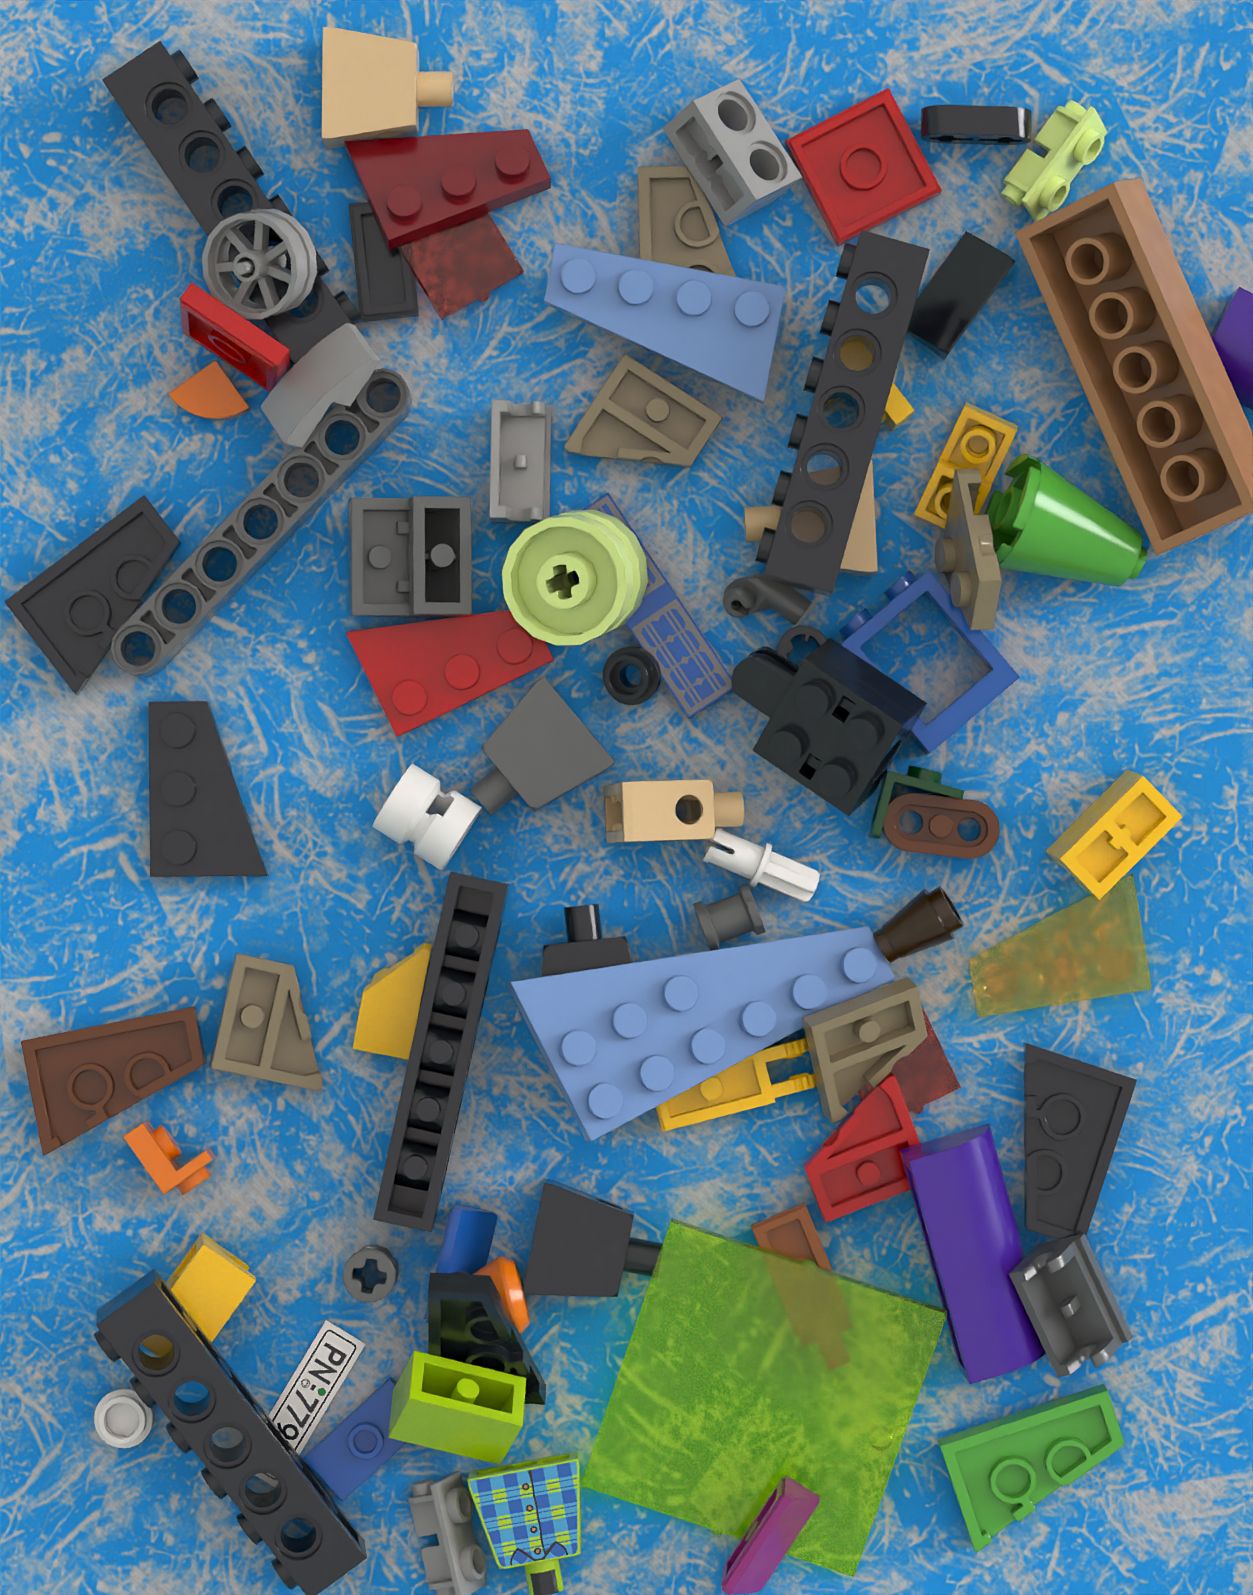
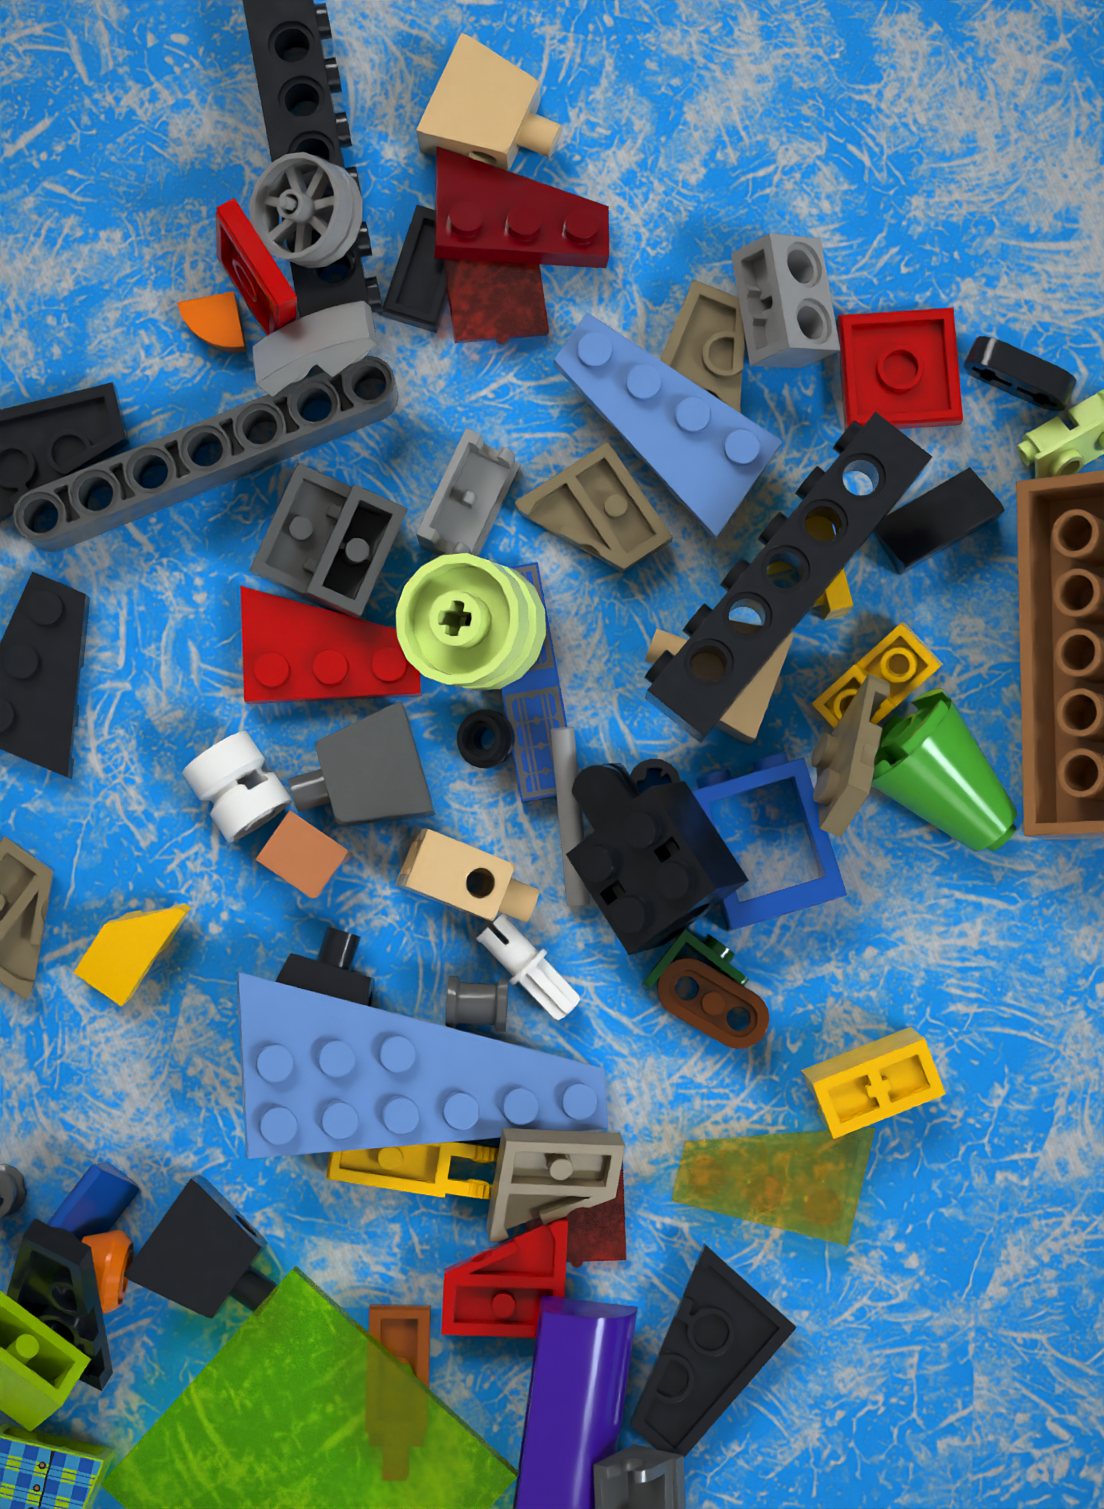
camera: 25 degrees right, 5 degrees down
(441, 1052) = (149, 1013): black brick -> none
(515, 853) = (303, 855): none -> nougat panel
(736, 709) = (568, 810): none -> light grey bar
(757, 594) = (638, 715): dark grey arm -> none
(919, 925) = (654, 1088): dark brown cone -> none

